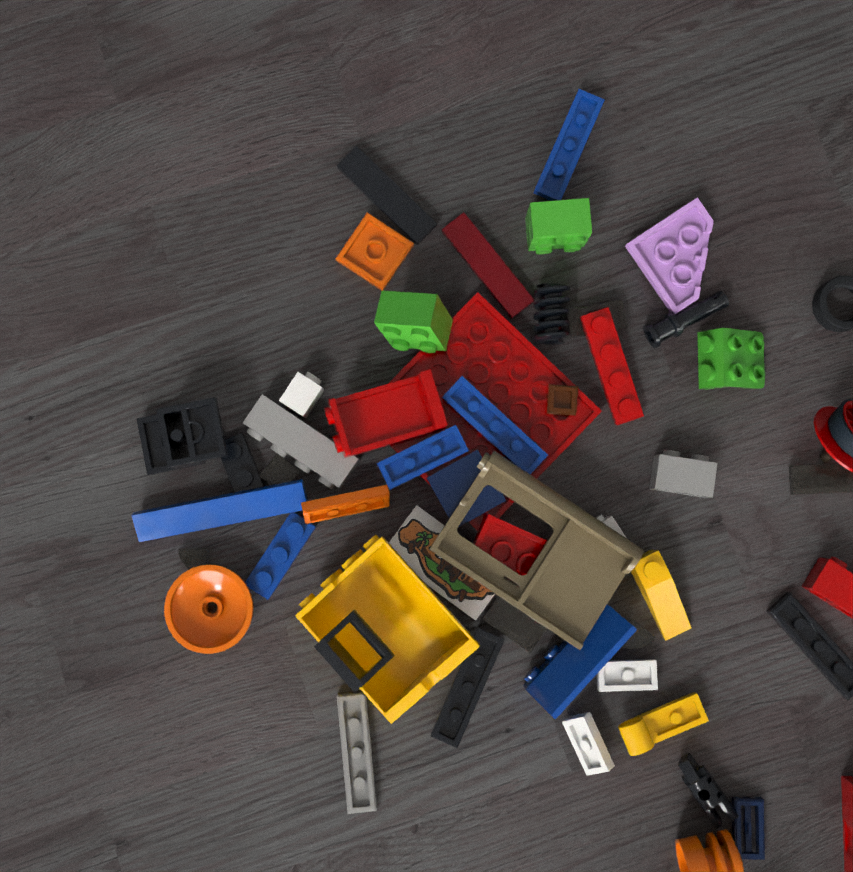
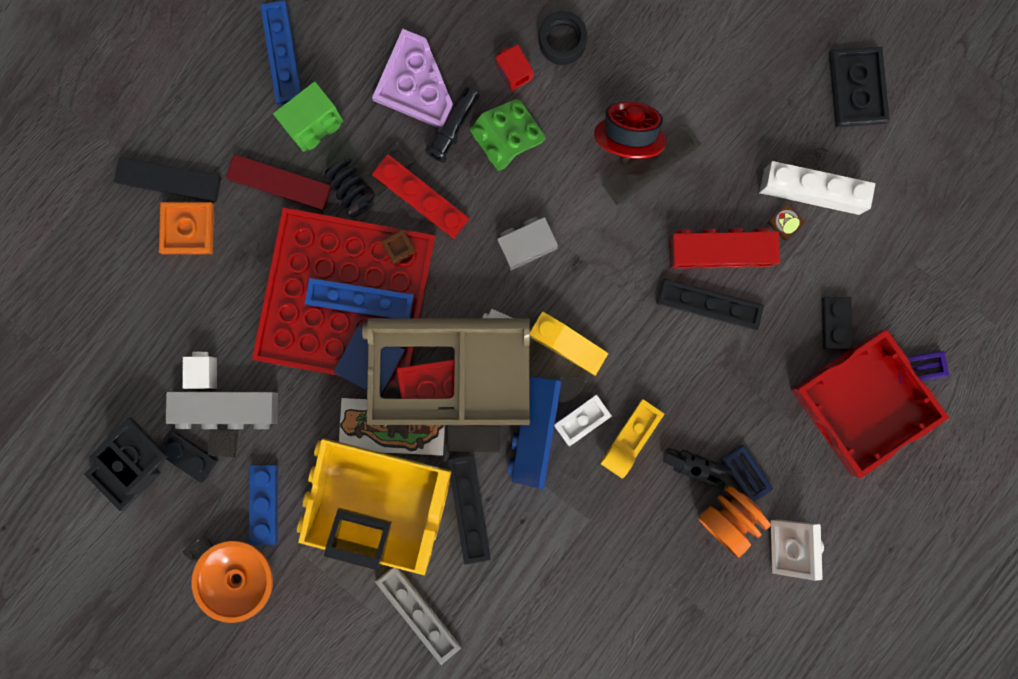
camera: 30 degrees left, 0 degrees up
(219, 510) = (194, 501): blue tile -> none
(346, 504) = (286, 433): orange tile -> none
(386, 414) = (270, 346): red panel -> none
(413, 321) = (244, 260): bright green brick -> none
(422, 457) = (320, 359): blue plate -> none
(588, 743) = (586, 491): white plate -> none
(778, 301) = (514, 67): none -> red brick

